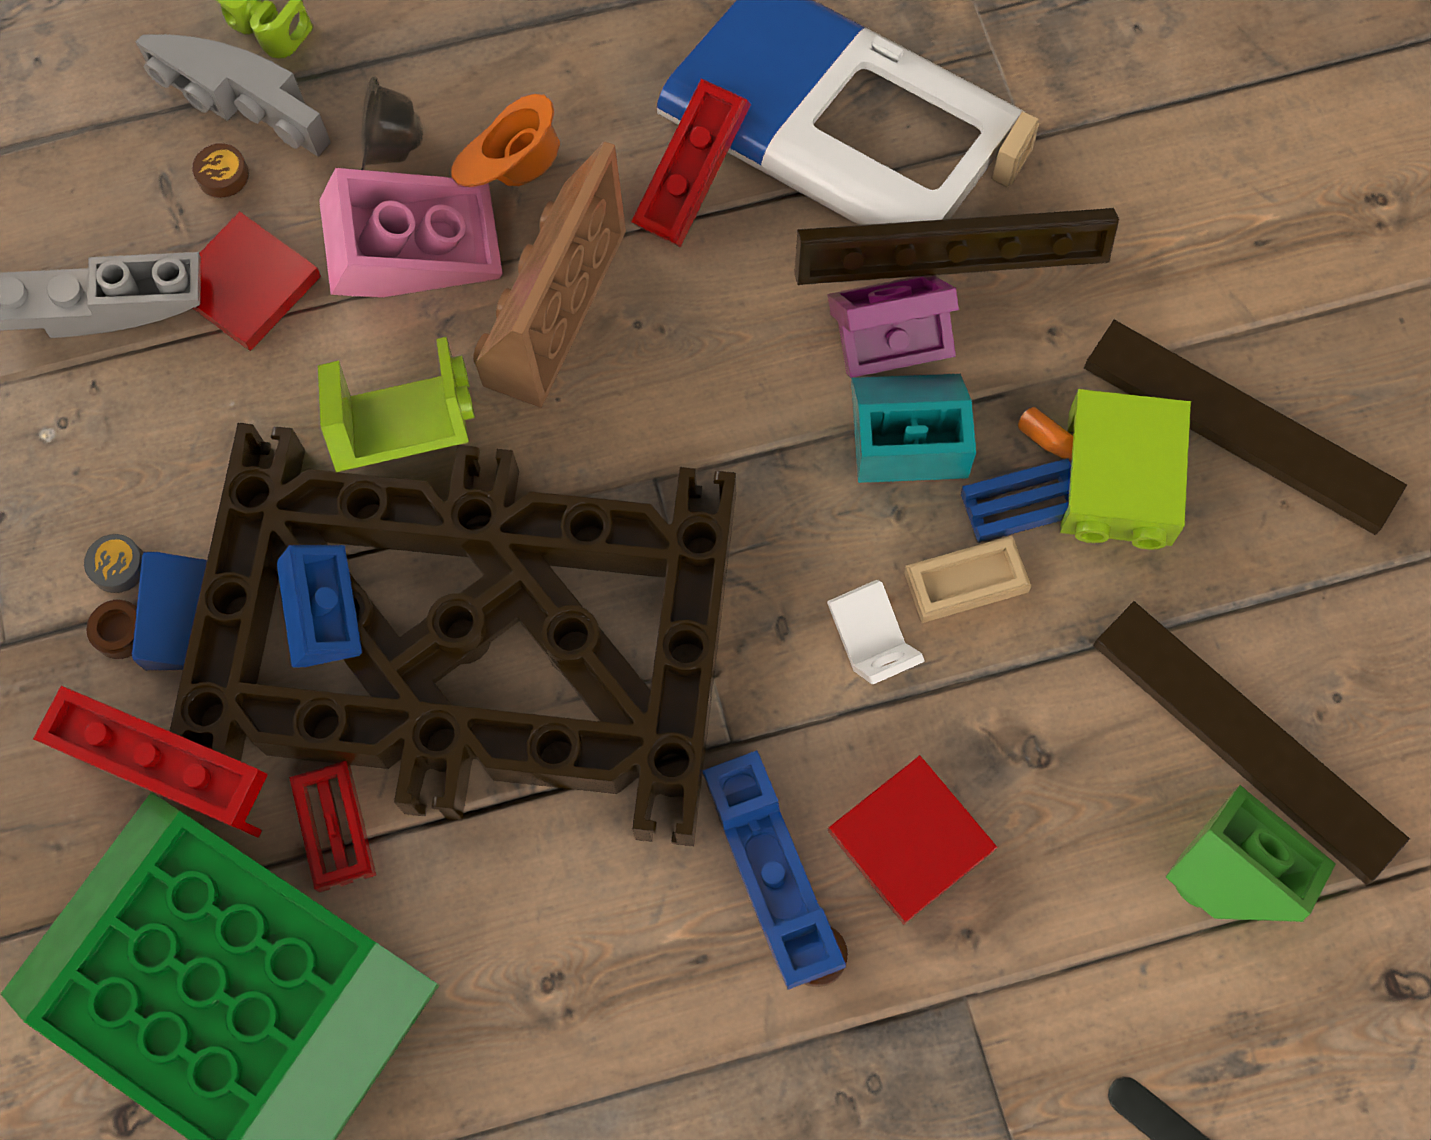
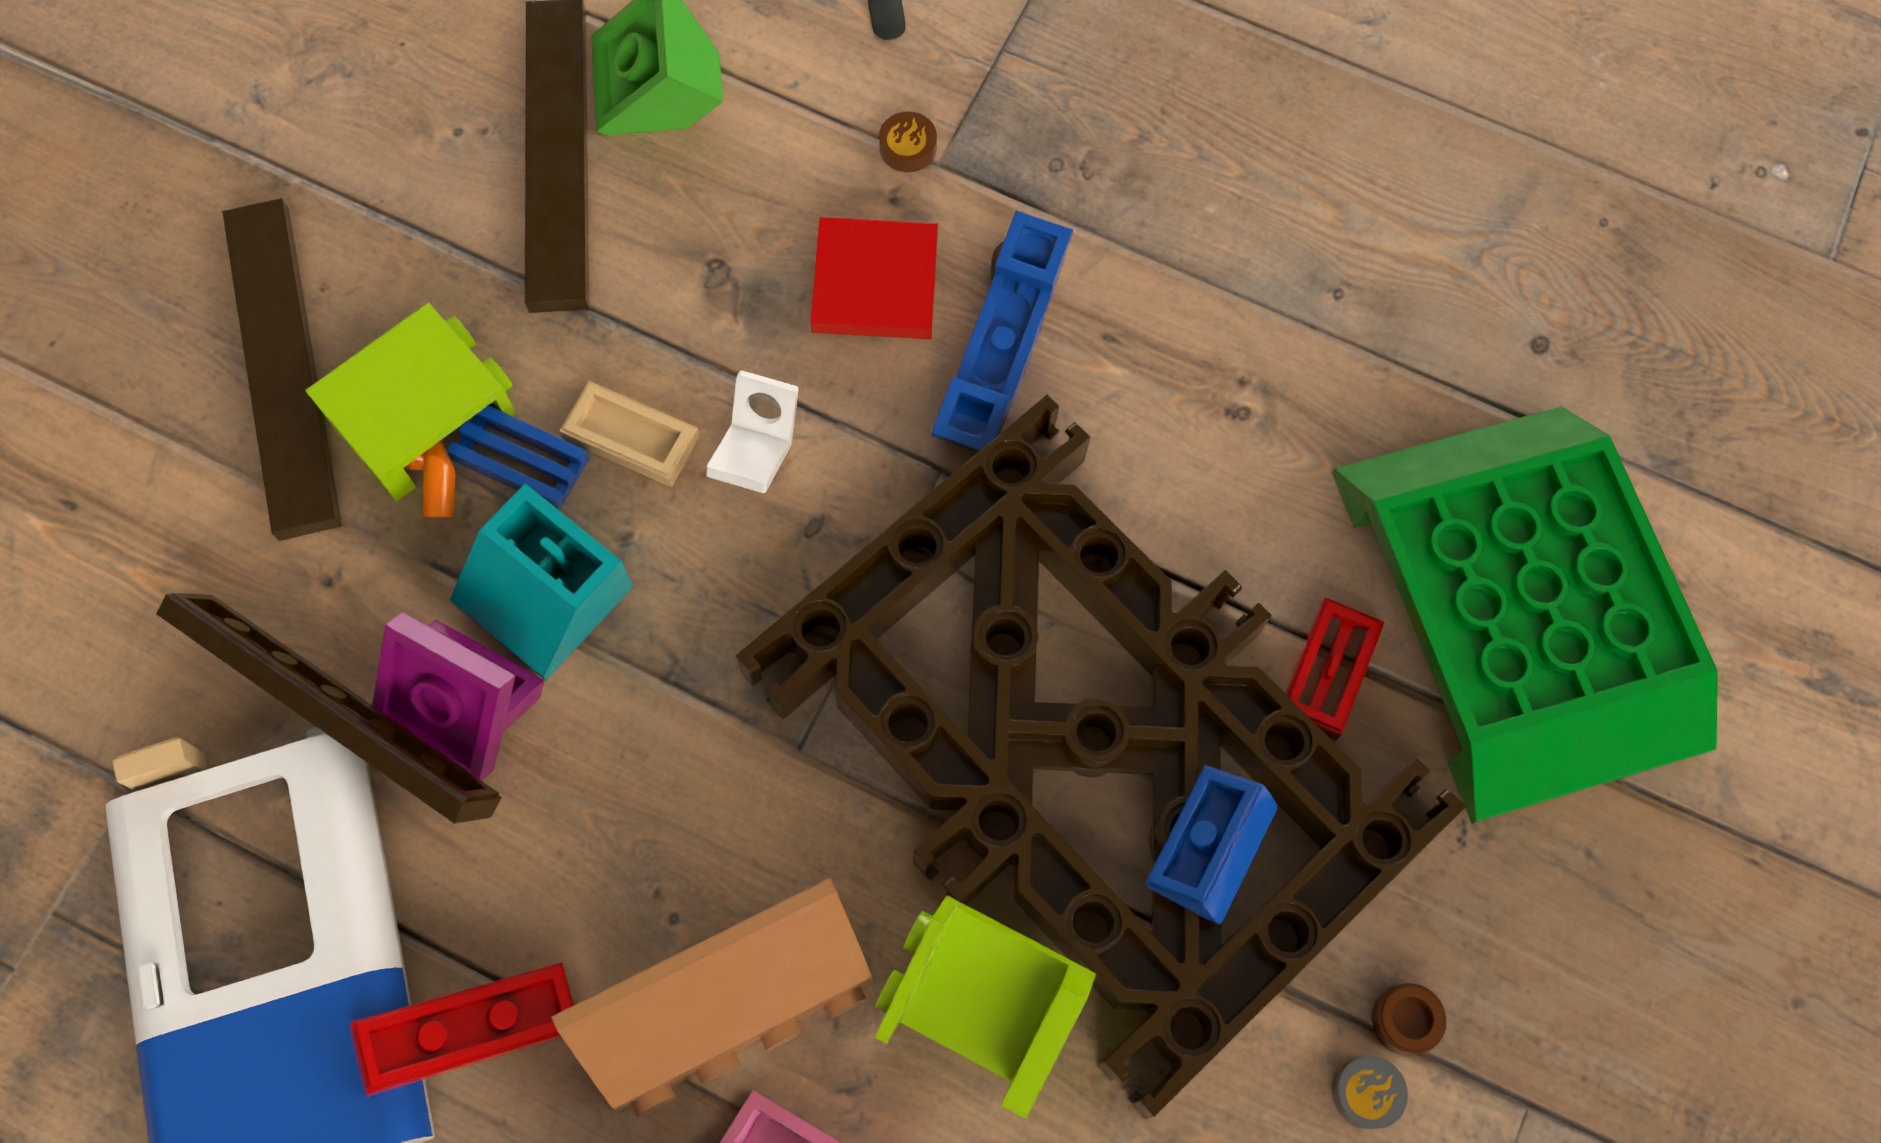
camera: 145 degrees left, 0 degrees up
(152, 758) = (1468, 824): red panel -> none
(166, 609) = (1345, 988): blue slope -> none
(1003, 989) = (908, 141): none -> reddish brown tile

